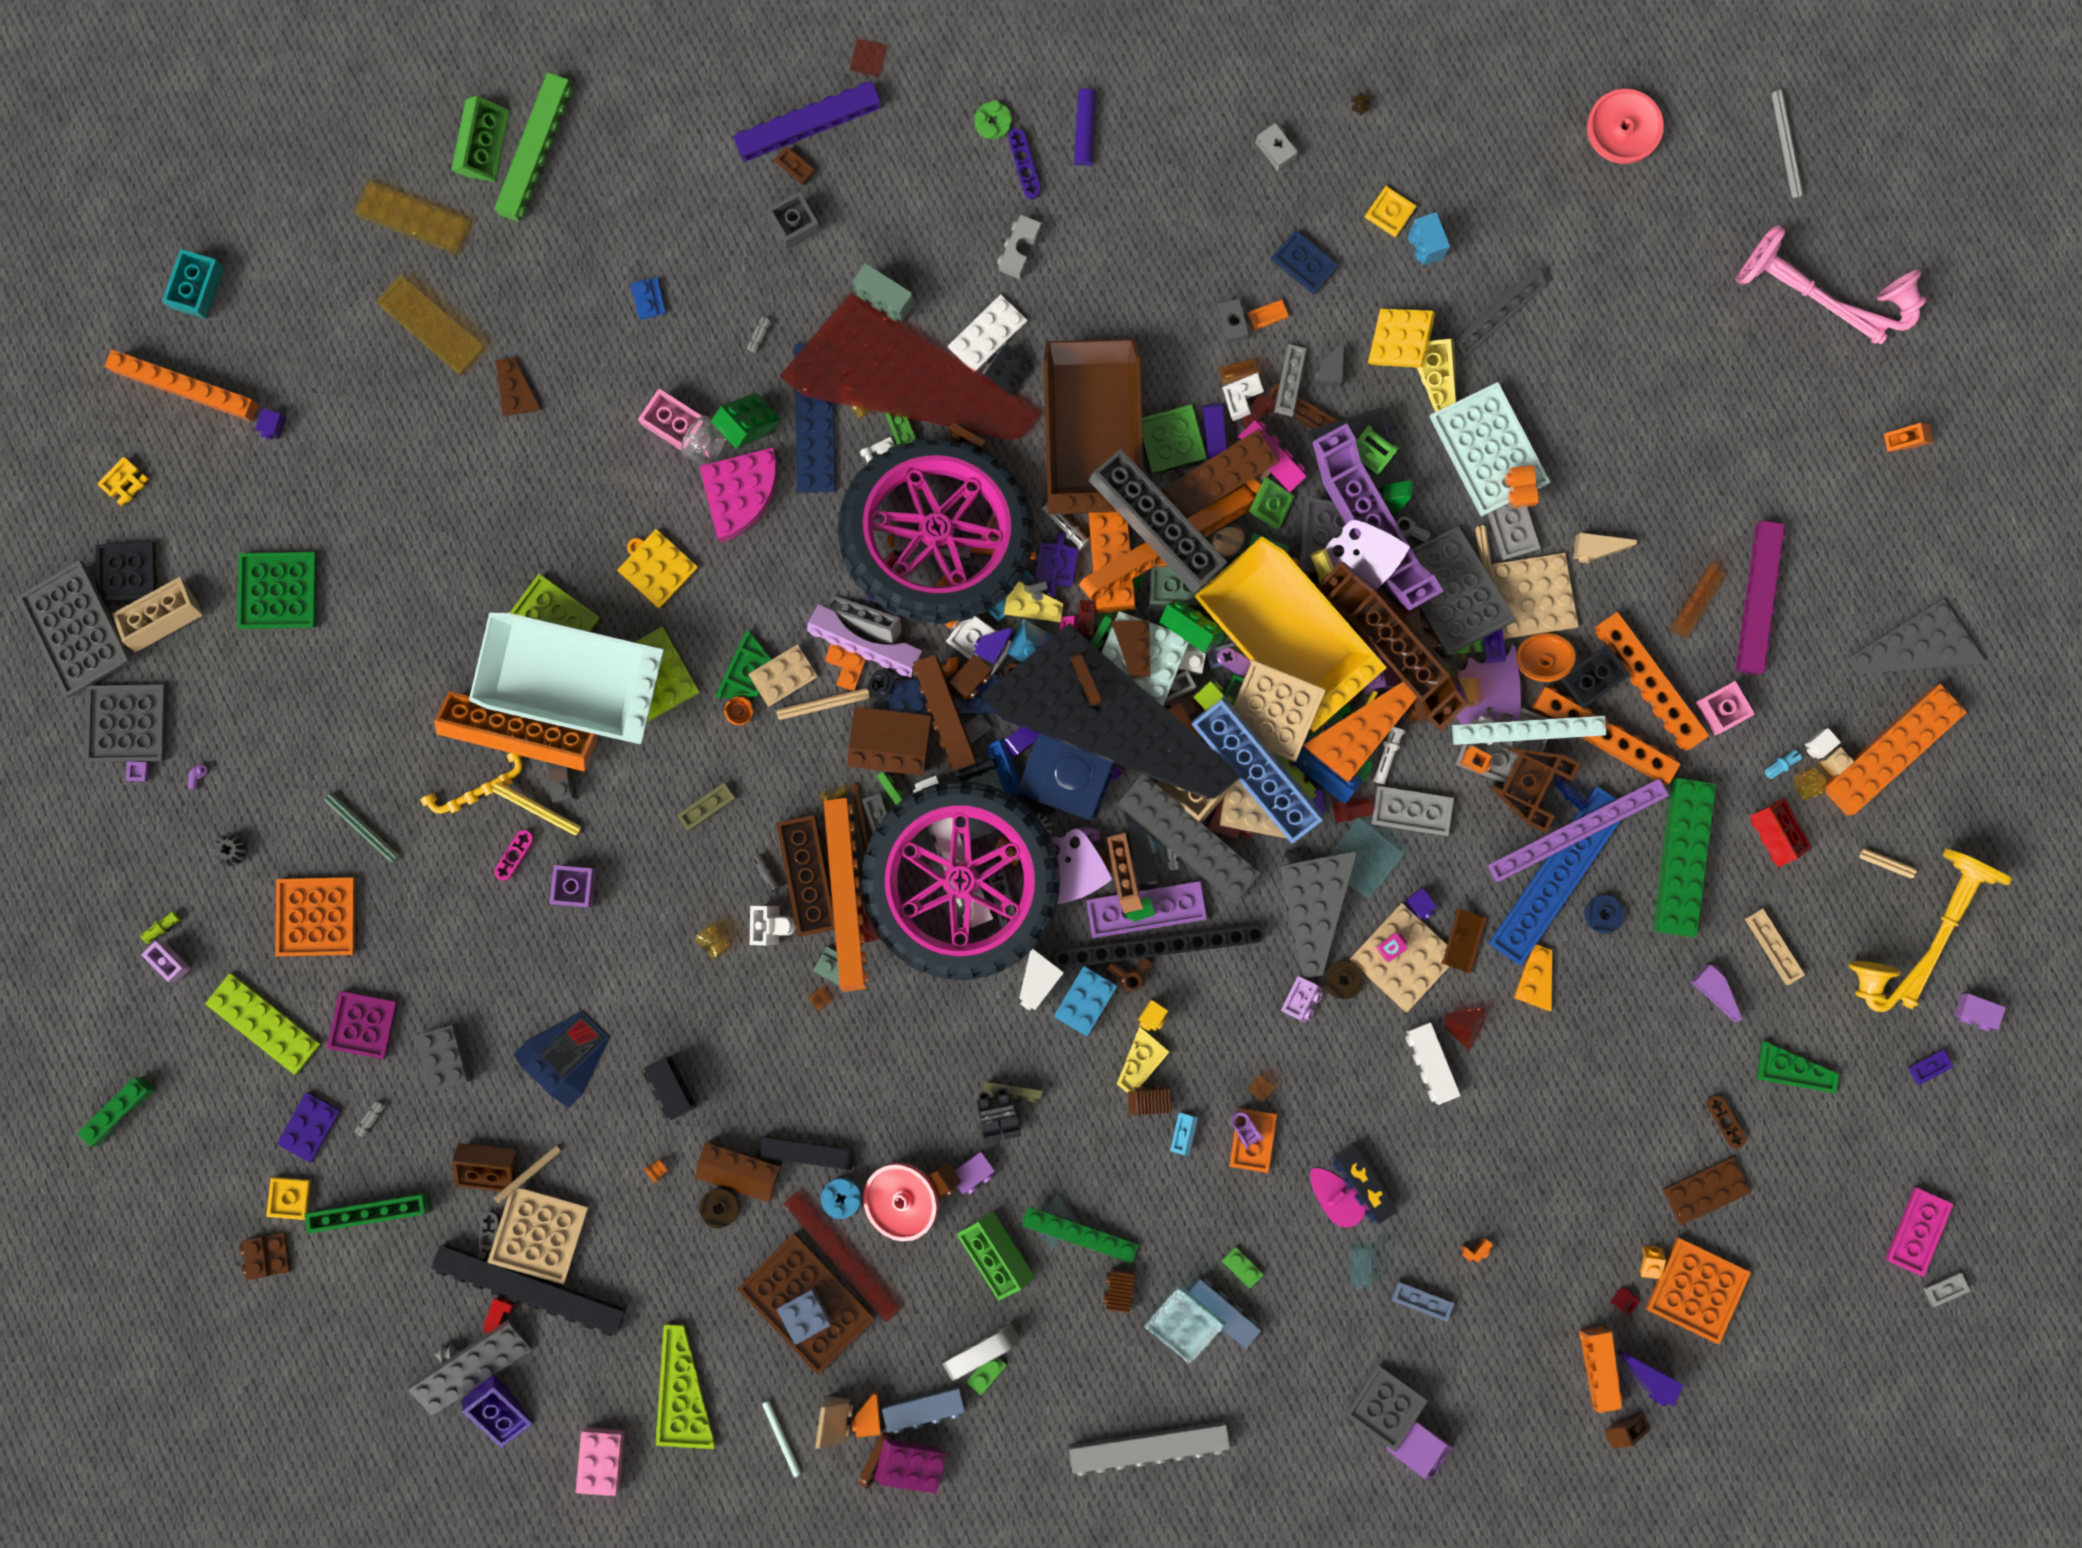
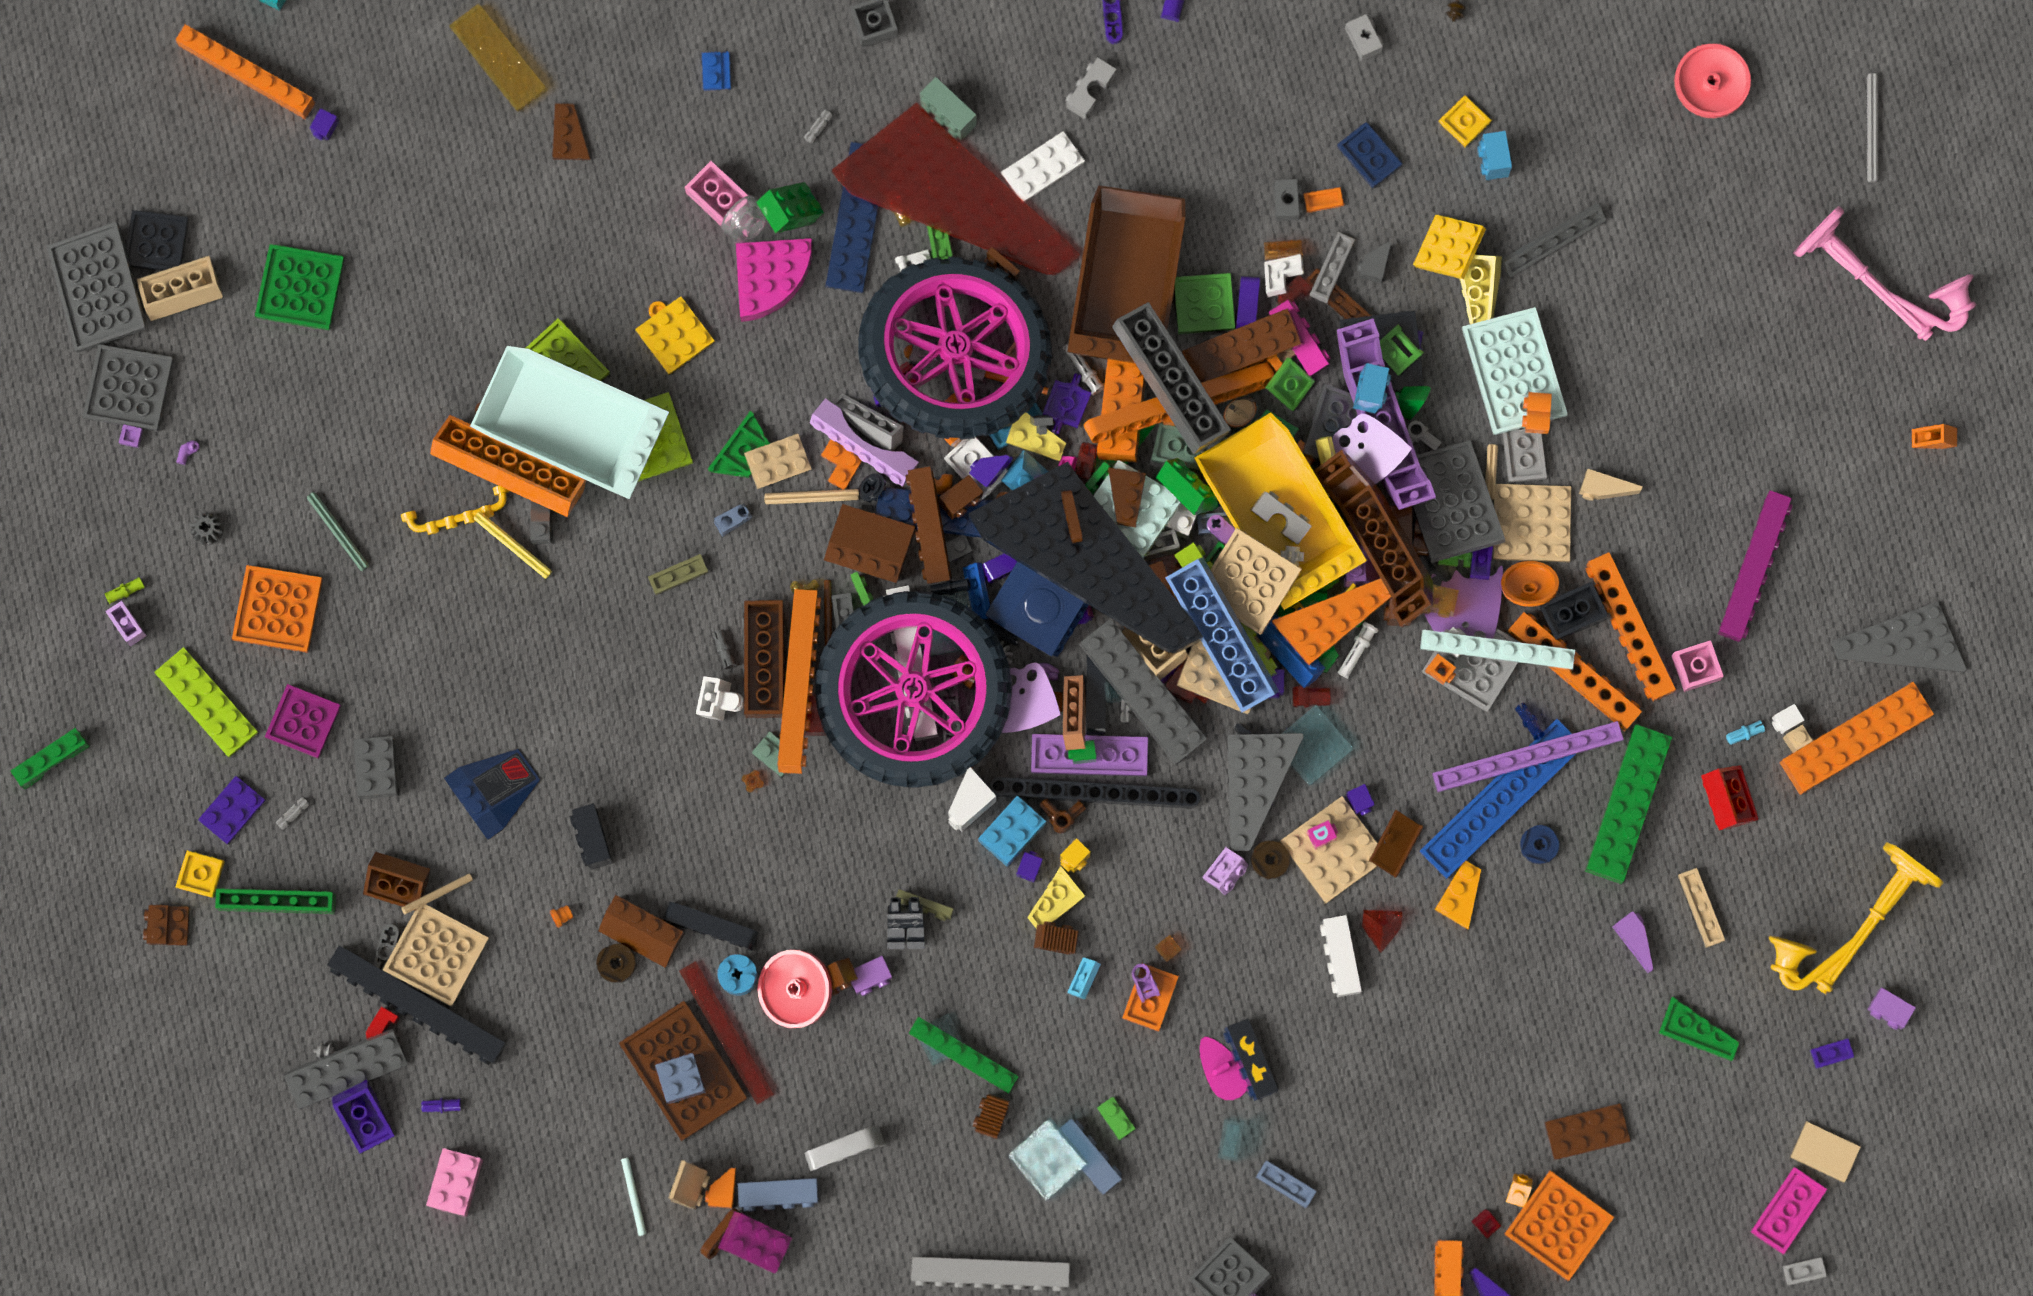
camera: 10 degrees right, 5 degrees down
(119, 477) = (166, 149): yellow plate -> none
(516, 840) = (487, 572): dark pink beam -> none
(573, 886) = (534, 626): medium lavender brick -> none
(573, 1384) = (441, 1105): none -> dark purple axle
(681, 1406) = (542, 1144): lime wing -> none
(712, 941) = (659, 705): clear yellow wheel -> none
(733, 709) = (724, 484): orange hair -> none
(749, 741) = (732, 519): none -> sand blue leg
(986, 1374) = (845, 1172): bright green plate -> none
(996, 1256) = (876, 1060): bright green slope -> none
(1007, 369) = (1055, 205): black plate -> none
(1109, 1032) = (1029, 866): none -> dark purple brick
(1307, 645) = (1295, 527): none -> light grey arch
(1309, 673) = (1293, 554): none -> white gear
(1358, 493) = (1371, 388): none -> dark azure brick
(1412, 811) = (1370, 709): light grey plate -> none
(1481, 1251) = (1355, 1145): orange bracket -> none
(1529, 781) = (1487, 701): reddish brown wedge -> none
(1697, 601) = (1693, 558): clear orange fence -> none
(1734, 1124) = (1619, 1084): reddish brown beam -> none
(1810, 784) = (1767, 755): clear yellow brick -> none
(1888, 863) = (1830, 848): tan axle -> none
(1942, 1165) = (1825, 1152): none -> tan tile

